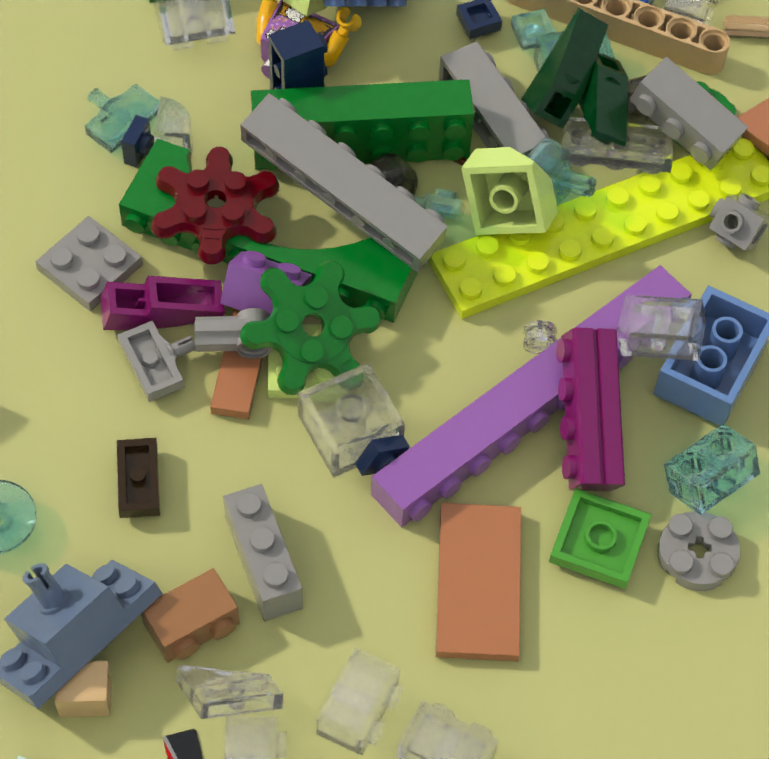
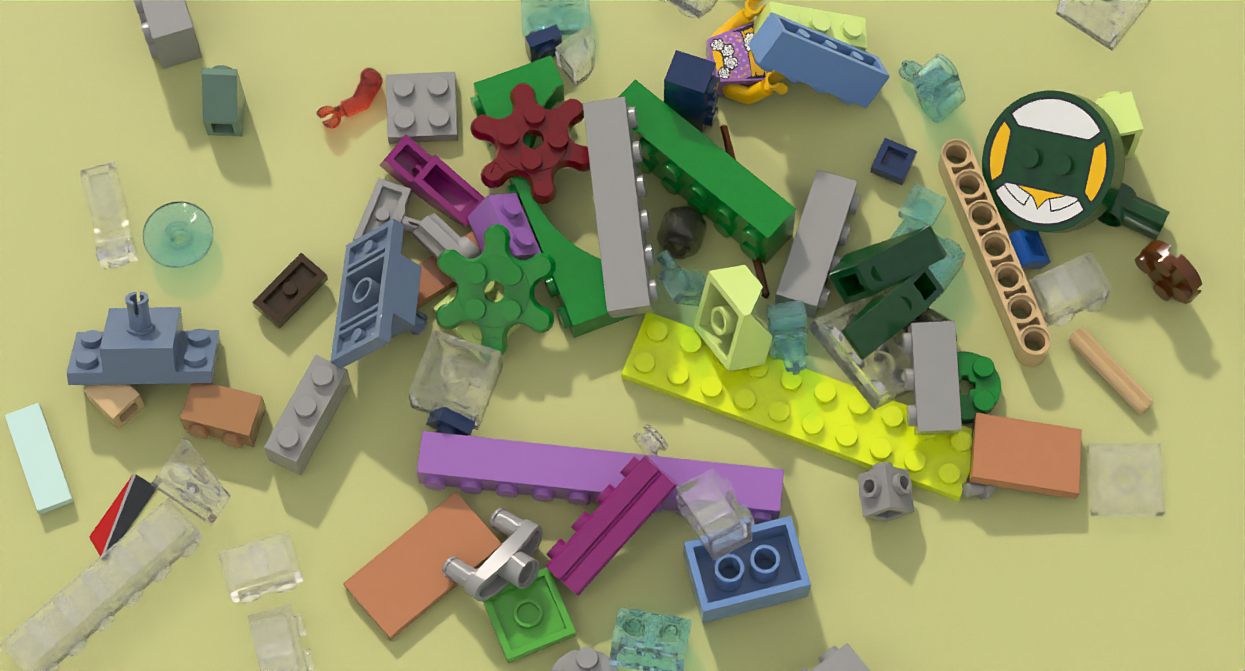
camera: 50 degrees right, 10 degrees up
(35, 297) = (361, 100): none -> clear red arm
(221, 408) = (376, 295): none -> sand blue brick
(551, 509) = (508, 564): none -> light grey connector

